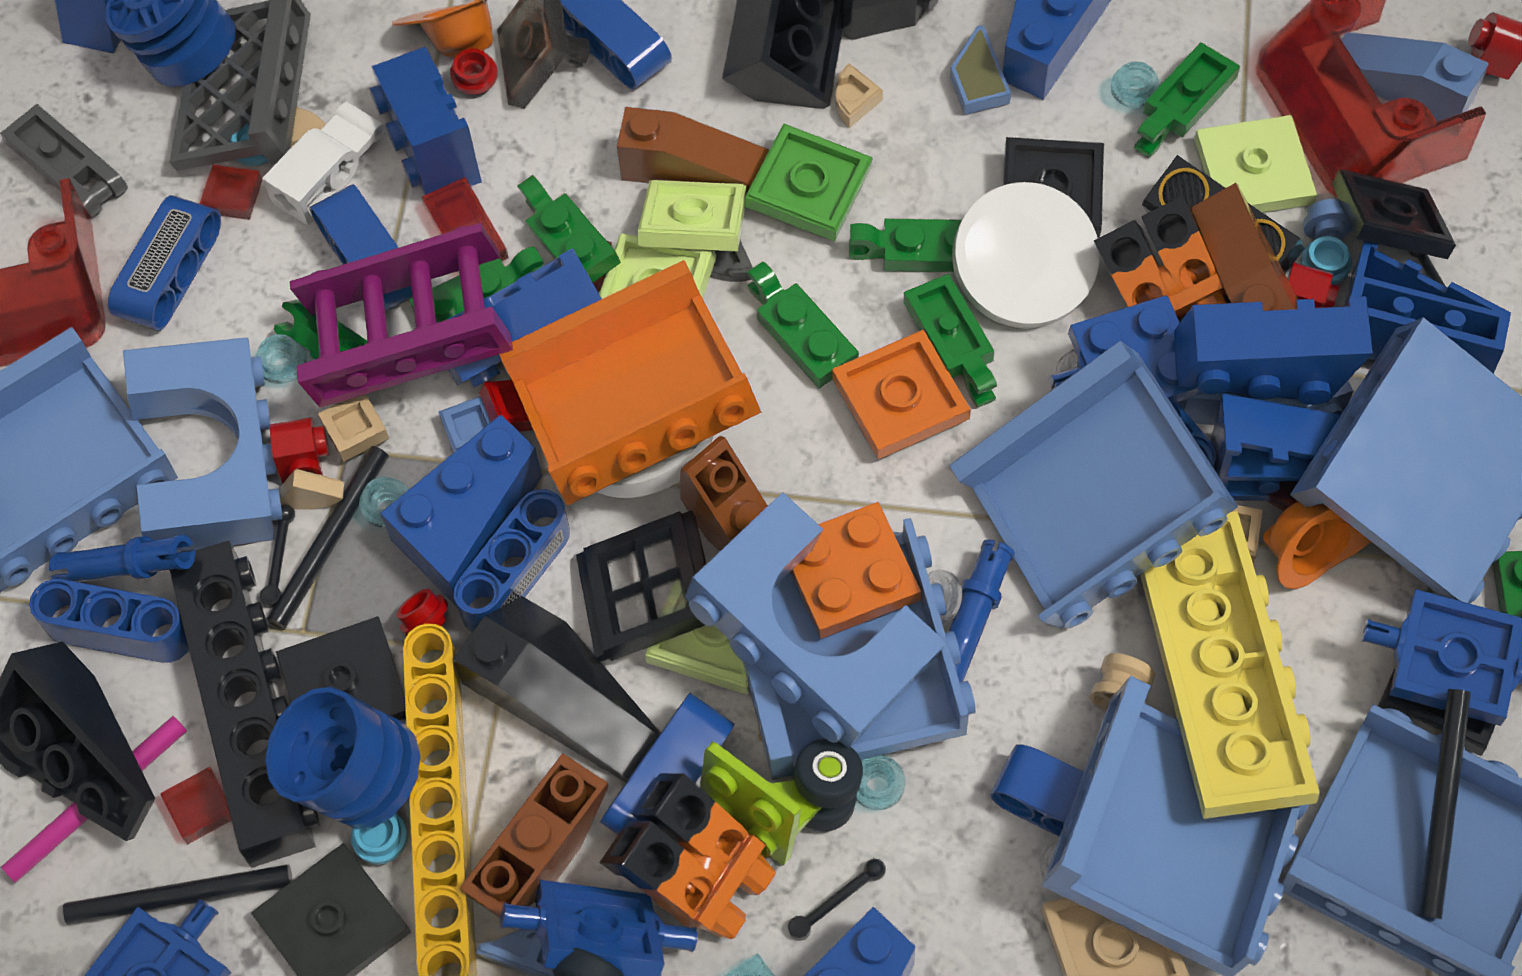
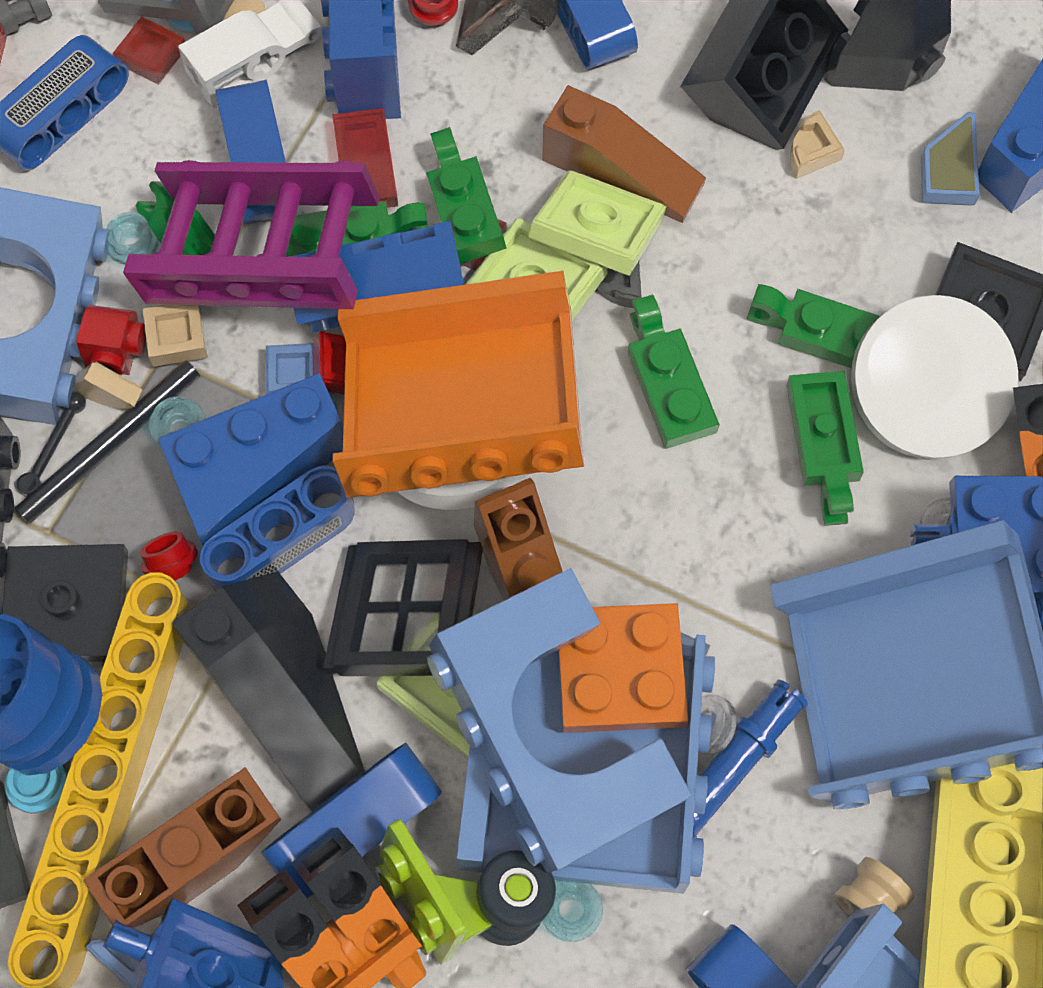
camera: 15 degrees right, 5 degrees up
(808, 182) = (732, 224): bright green plate -> none
(901, 394) = (748, 485): orange plate -> none

